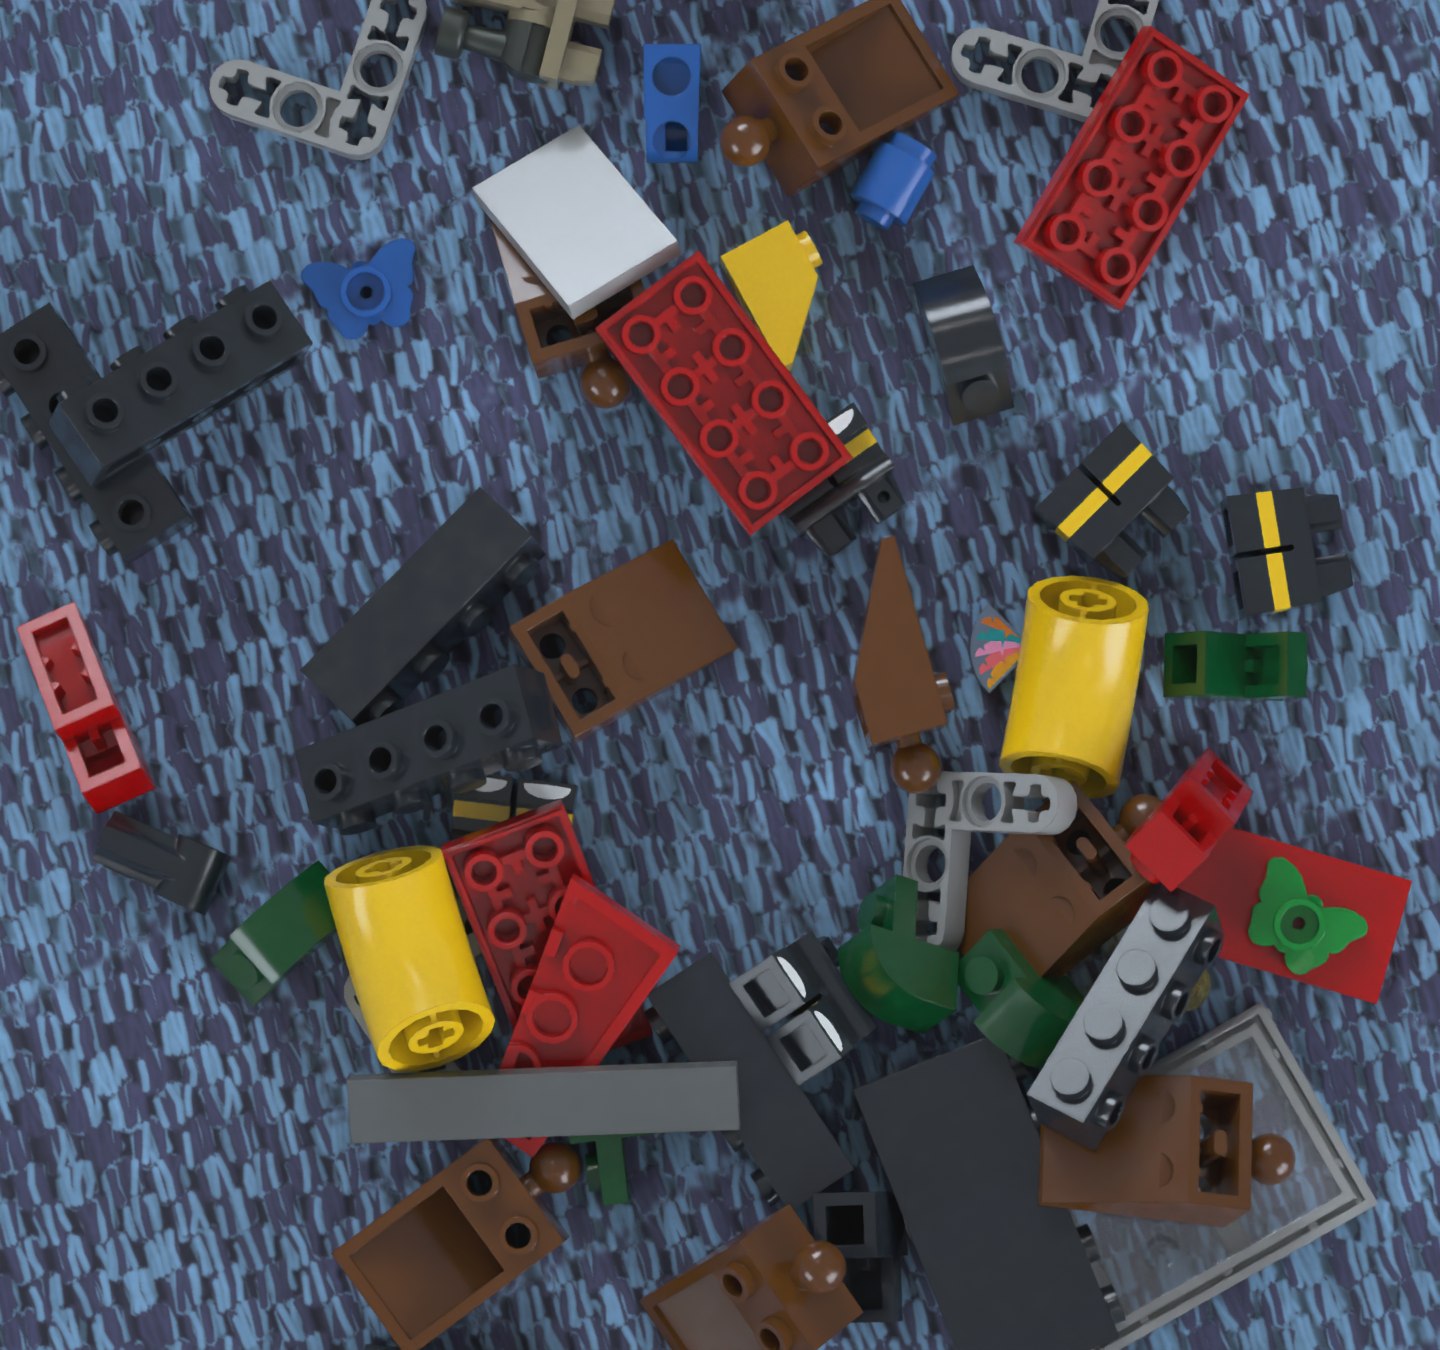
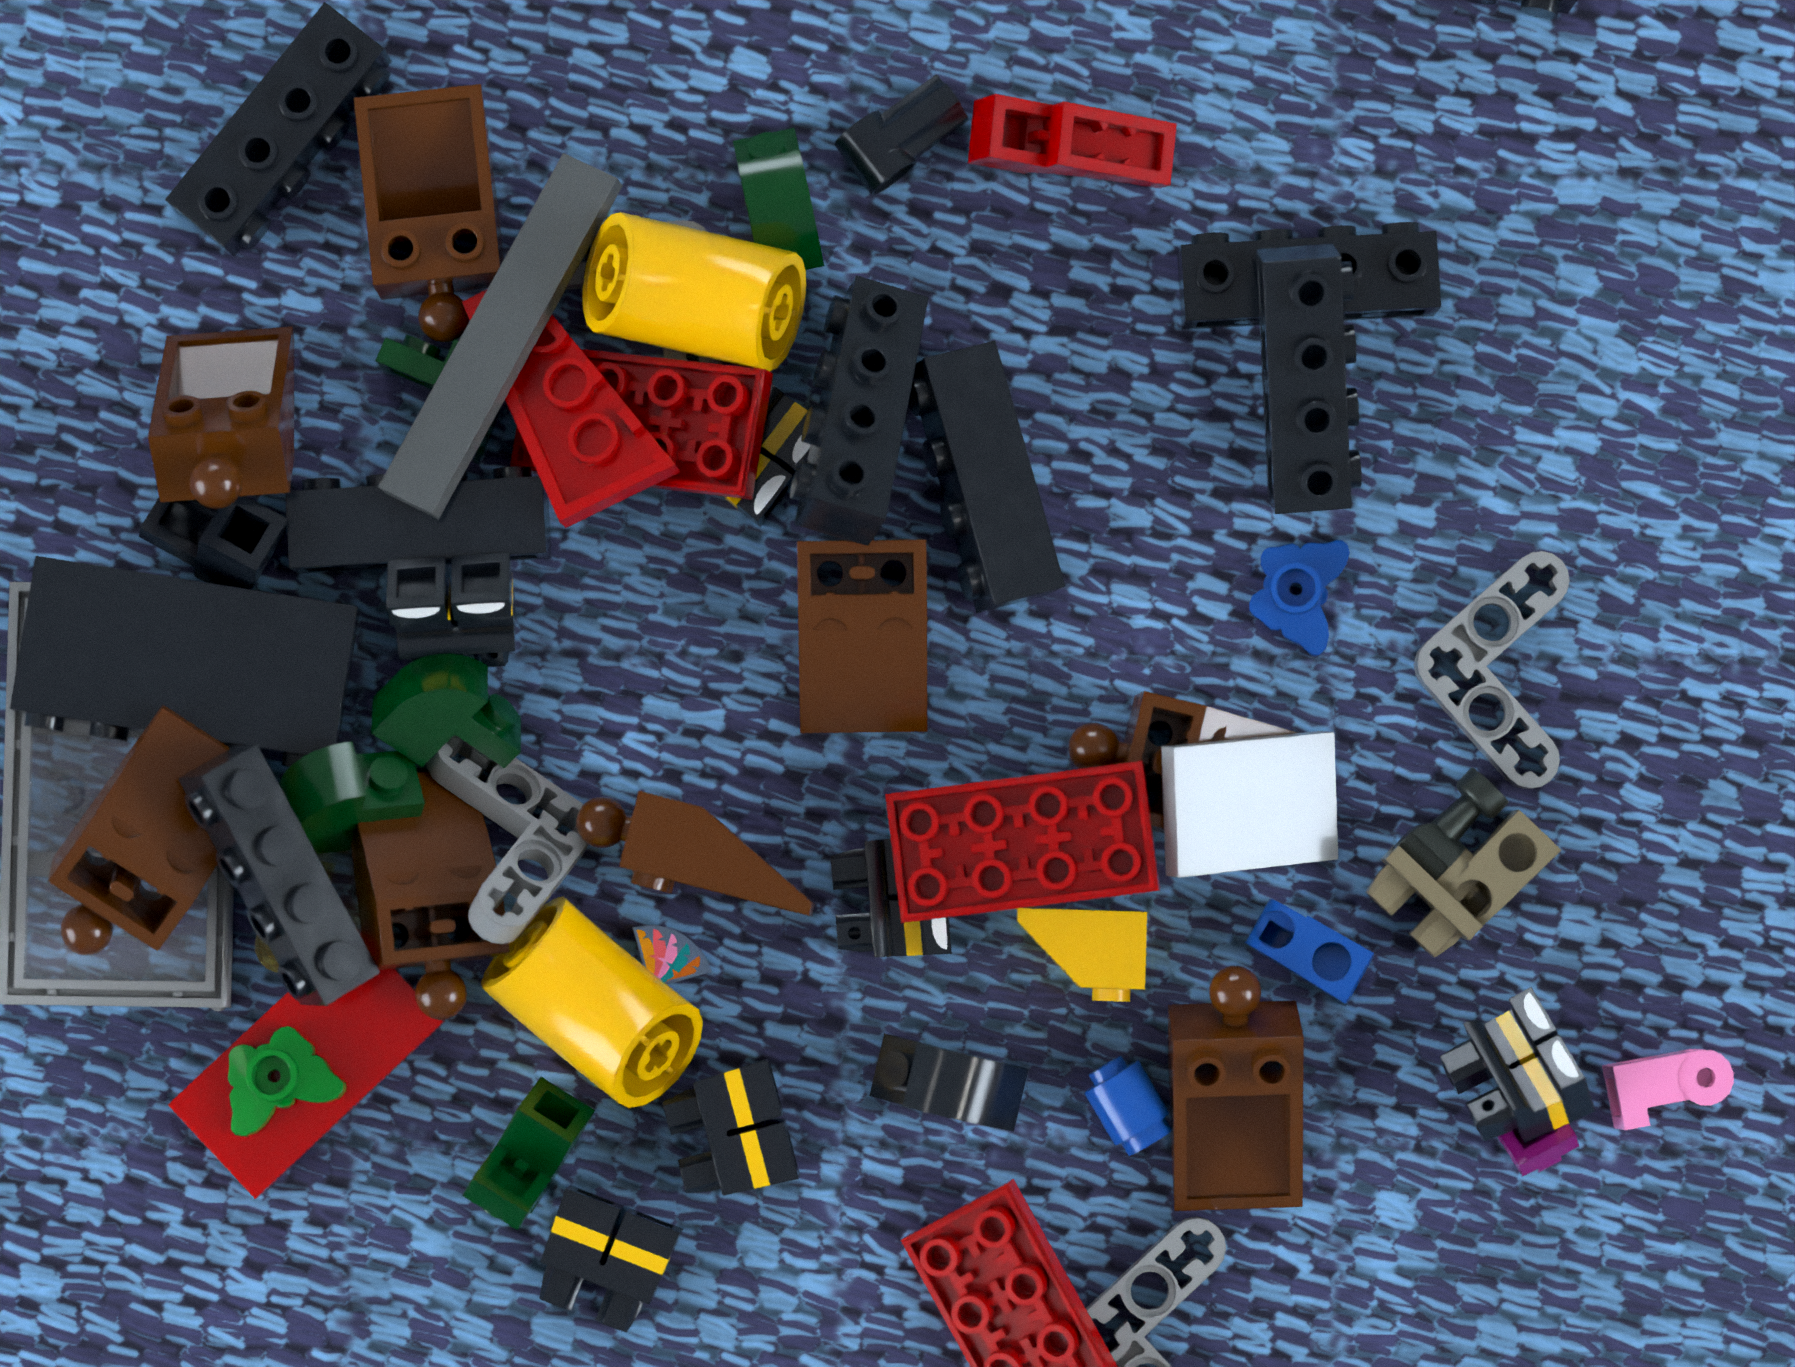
camera: 125 degrees right, 0 degrees up
(1188, 821) = (414, 1030): red slope -> none

